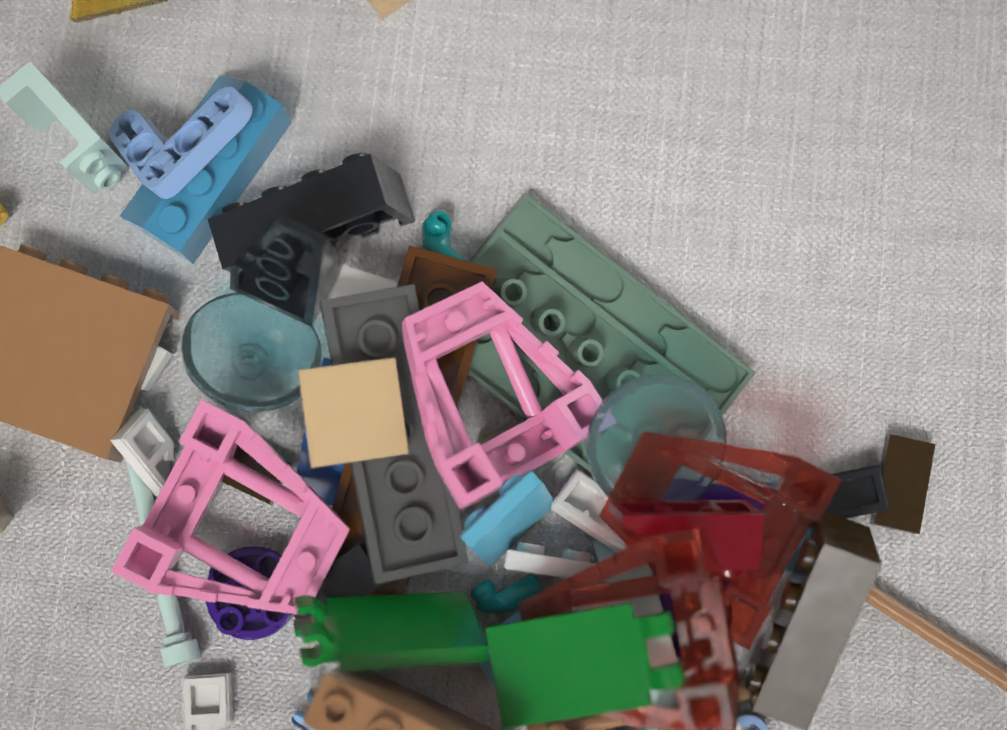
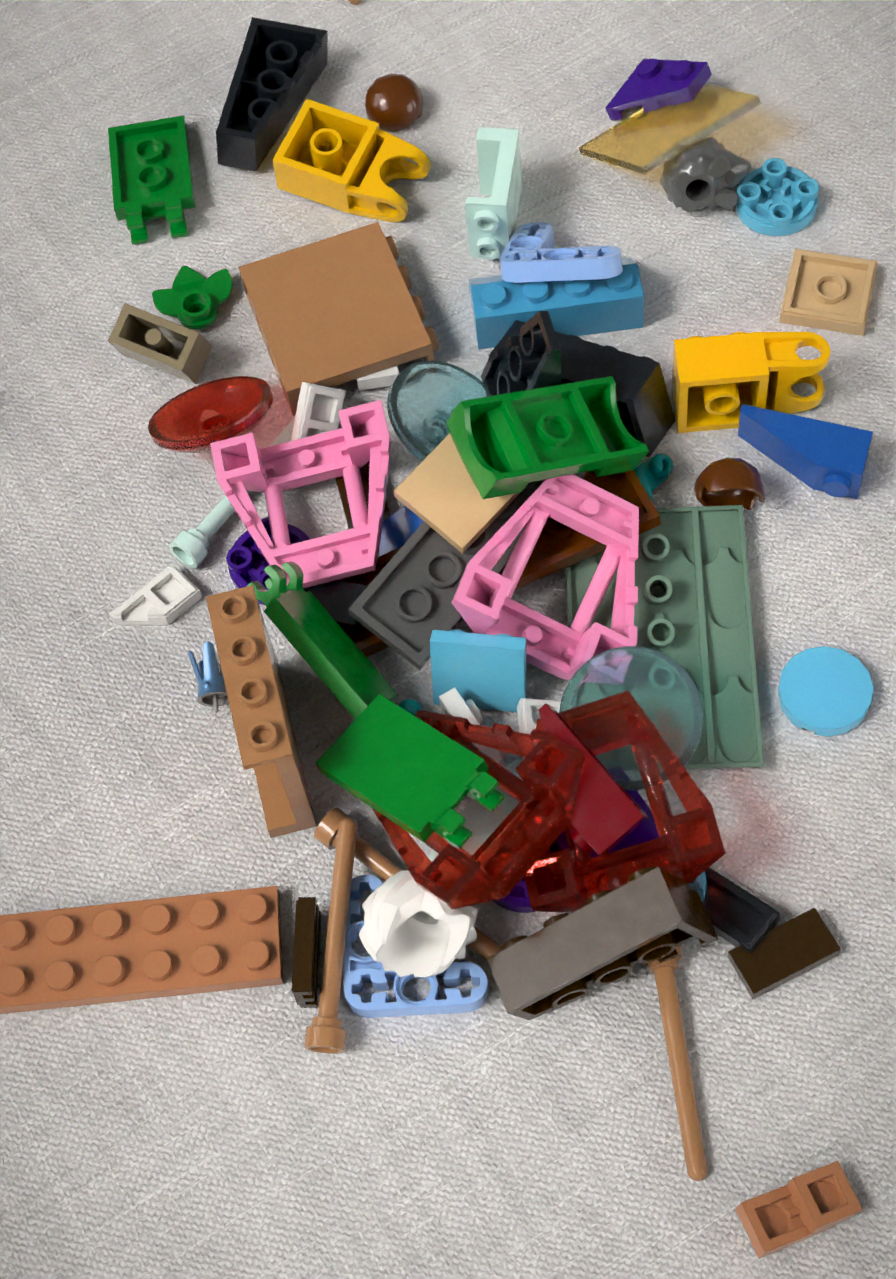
camera: 55 degrees right, 20 degrees down
(68, 538) = (211, 414): none -> clear red dish
(369, 309) = (543, 436): none -> green piece
(424, 98) = (752, 369): none -> yellow brick
(505, 189) = (729, 483): none -> reddish brown hair
(527, 103) = (815, 451): none -> blue slope
(728, 273) = (825, 691): none -> medium azure tile

